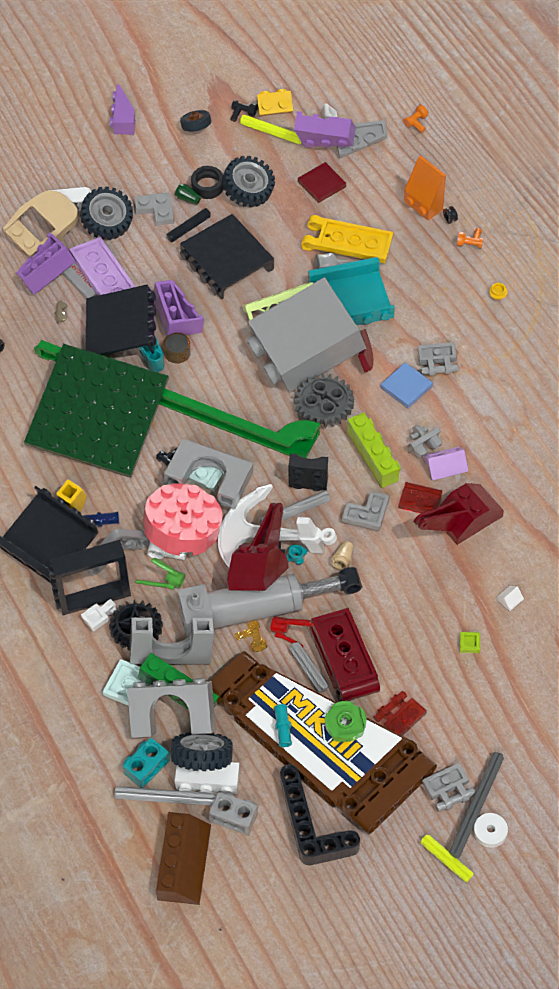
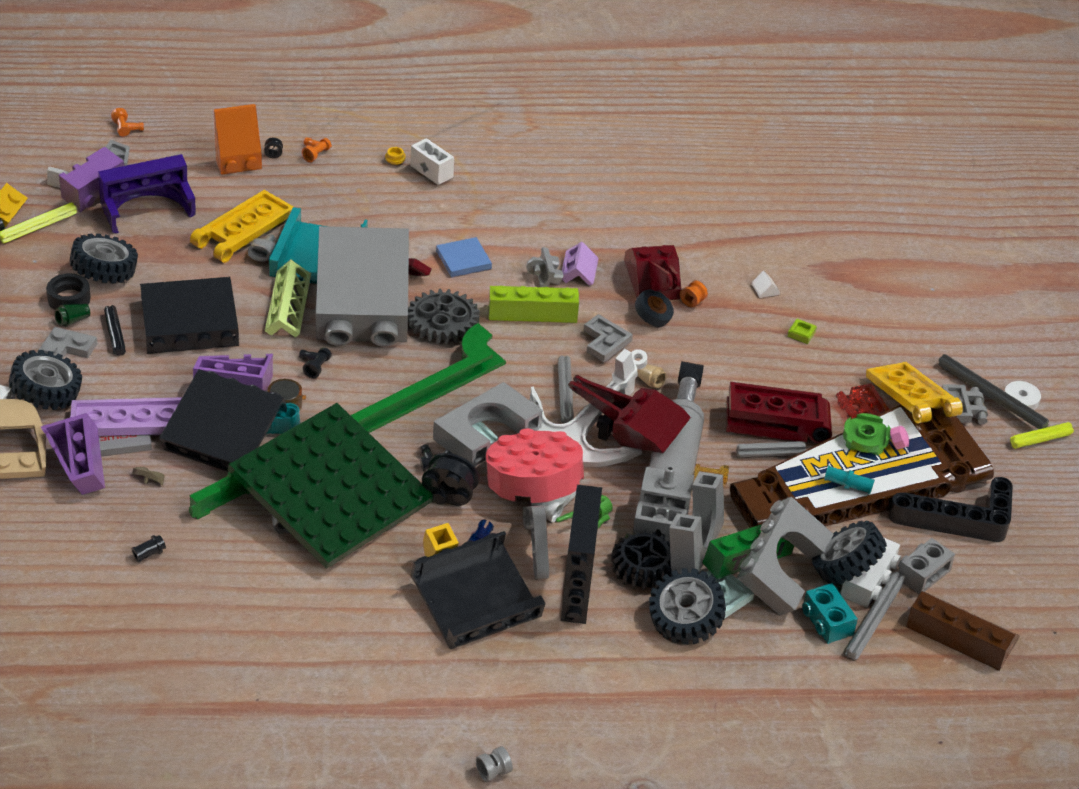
camera: 70 degrees left, 15 degrees down
(97, 616) = (610, 589): white plate -> none
(97, 667) = (684, 589): none -> wheel
(138, 475) = (450, 479): none -> black wheel
(172, 619) = (655, 518): none -> light grey brick
(231, 349) = (313, 367): none -> black piece
(280, 625) = (710, 447): red plant -> none
(308, 472) = (536, 354): black brick -> none
(320, 150) = (151, 178): none -> dark purple piece
(322, 182) = (146, 216): dark red tile -> none
(351, 745) = (899, 437): none -> bright pink tile
(419, 498) = (611, 300): clear red plate -> none
(419, 537) = (654, 308): none -> black wheel
(427, 739) = (914, 391): none -> yellow hinge
(437, 353) = (442, 223): light grey plate -> none
(459, 549) = (693, 294): none -> orange wheel
(499, 315) = (432, 161): none -> white brick

